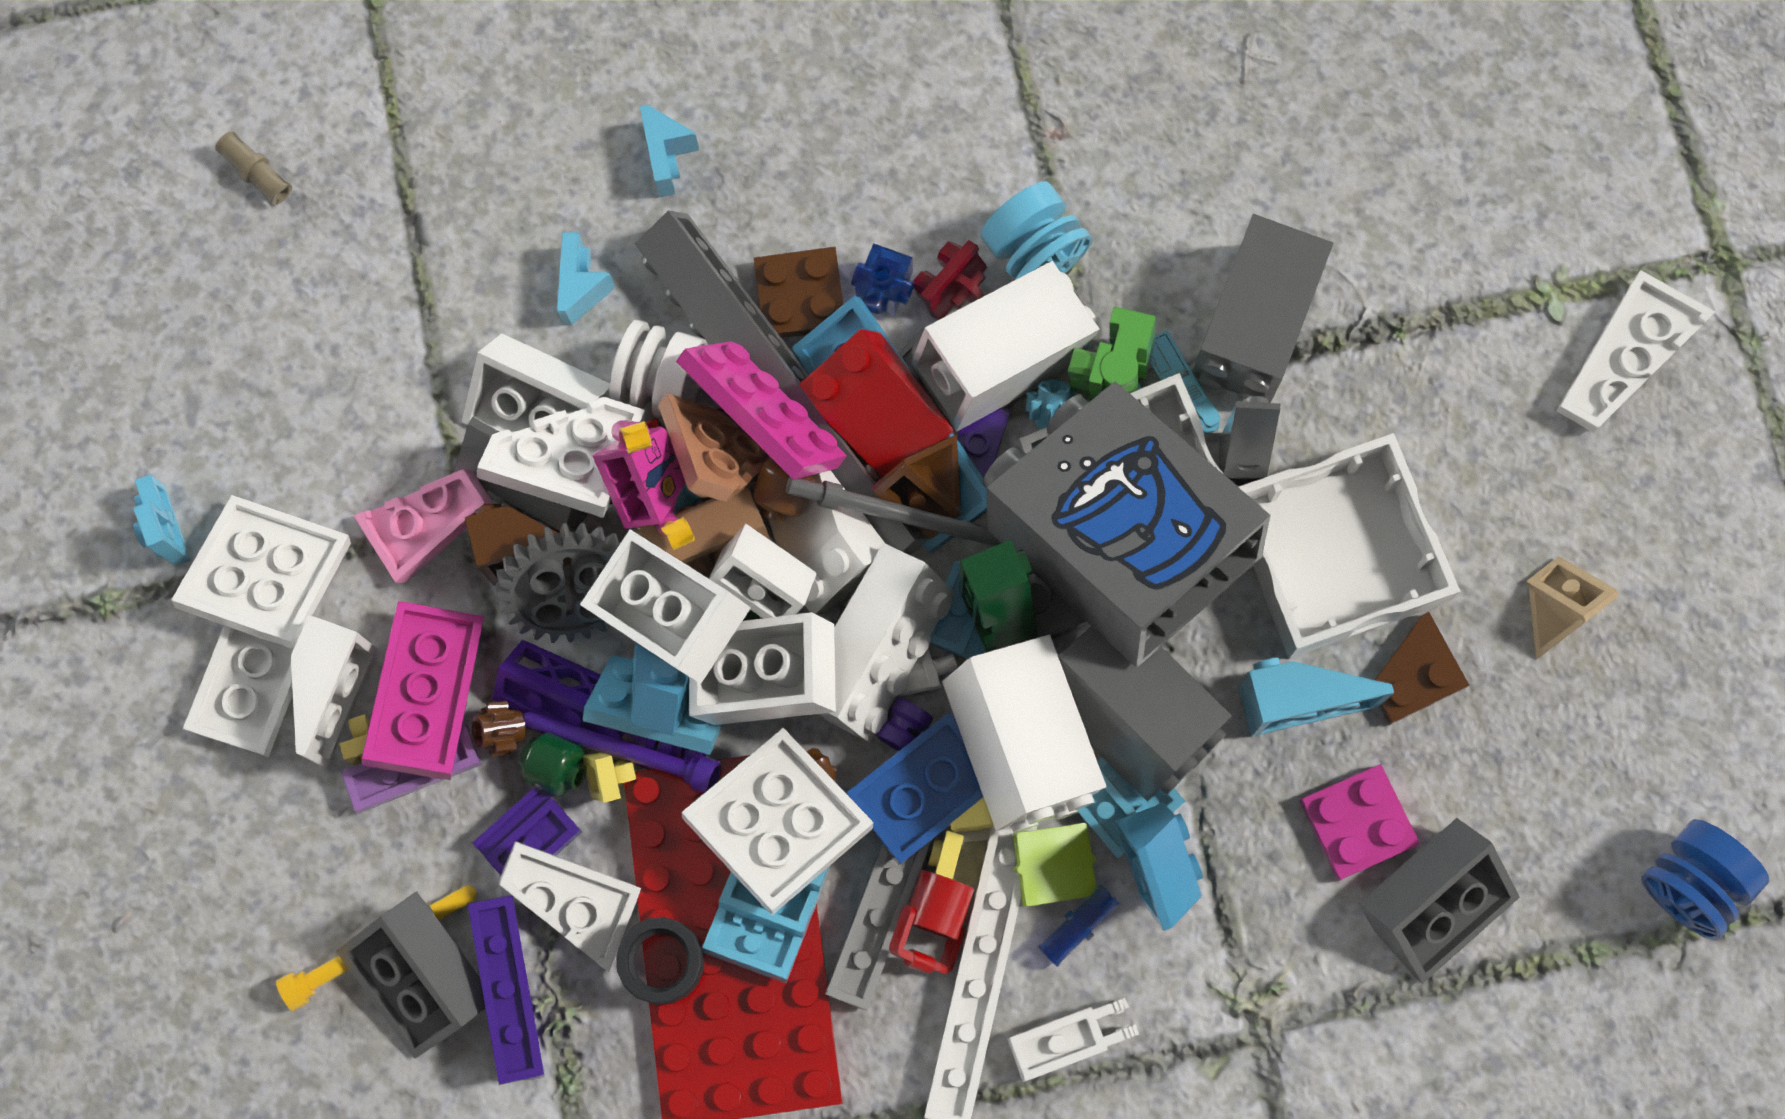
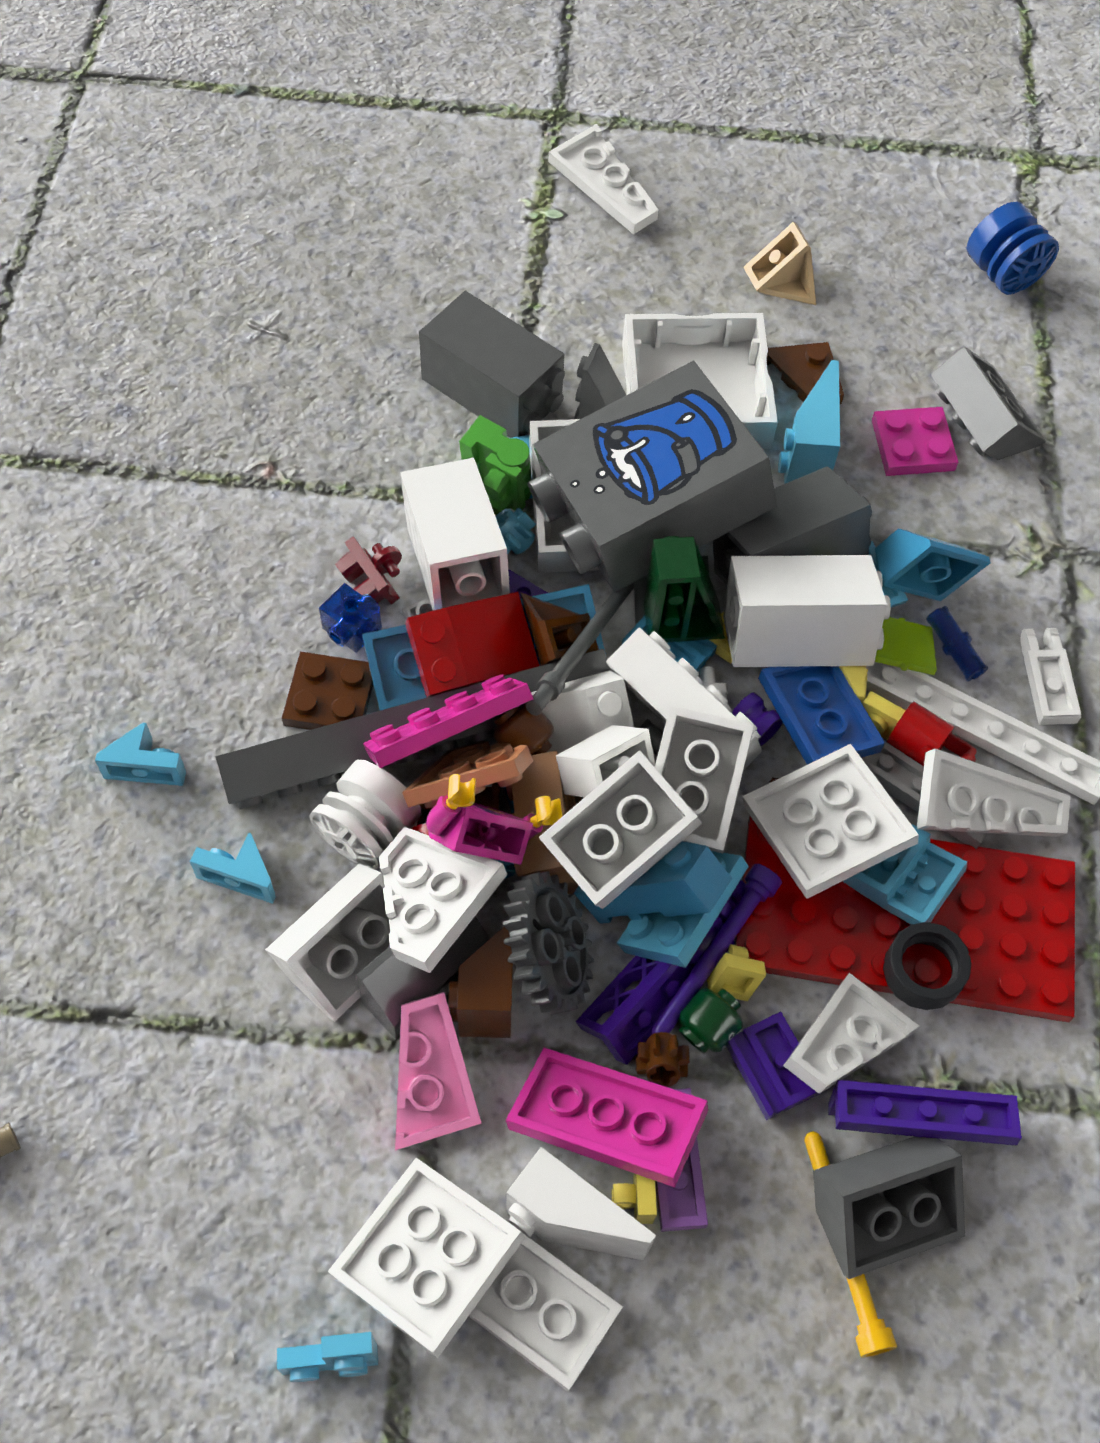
camera: 80 degrees left, 15 degrees down
(866, 974) = (984, 800): none -> white wing
(1034, 232) = (365, 493): medium azure wheel -> none

